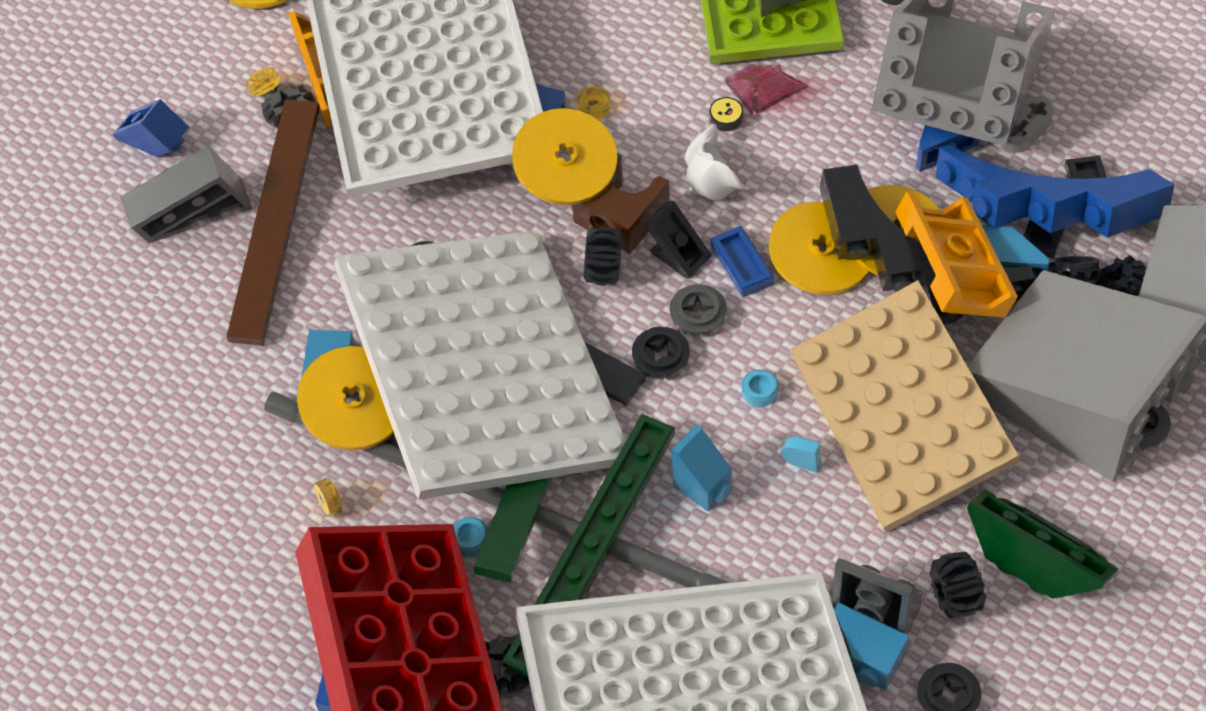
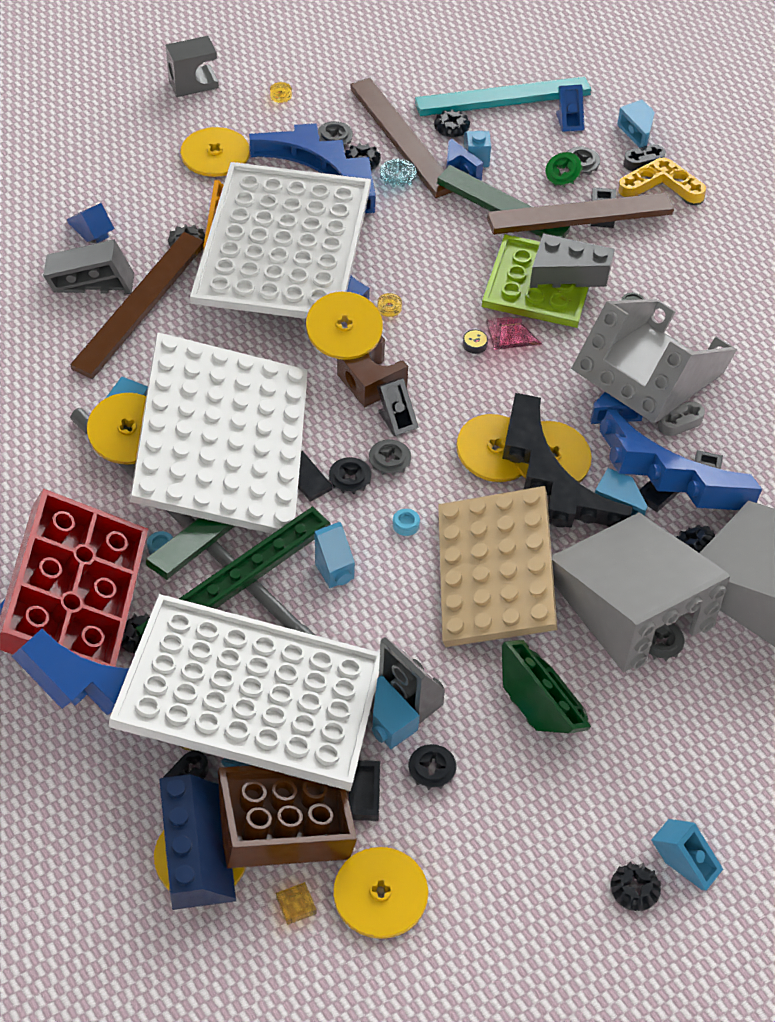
camera: 15 degrees right, 5 degrees down
(263, 81) = (178, 218): clear yellow tile -> none
(328, 497) = (80, 485): clear yellow tile -> none
(602, 256) = (340, 399): black gear -> none
(707, 168) = (443, 370): white hair -> none
(742, 261) = (436, 437): blue tile -> none
(802, 453) = (411, 573): medium azure tile -> none
(957, 585) = (472, 695): black gear -> none
(962, 257) = (581, 482): light orange piece -> none
(1078, 267) = (666, 520): black gear -> none

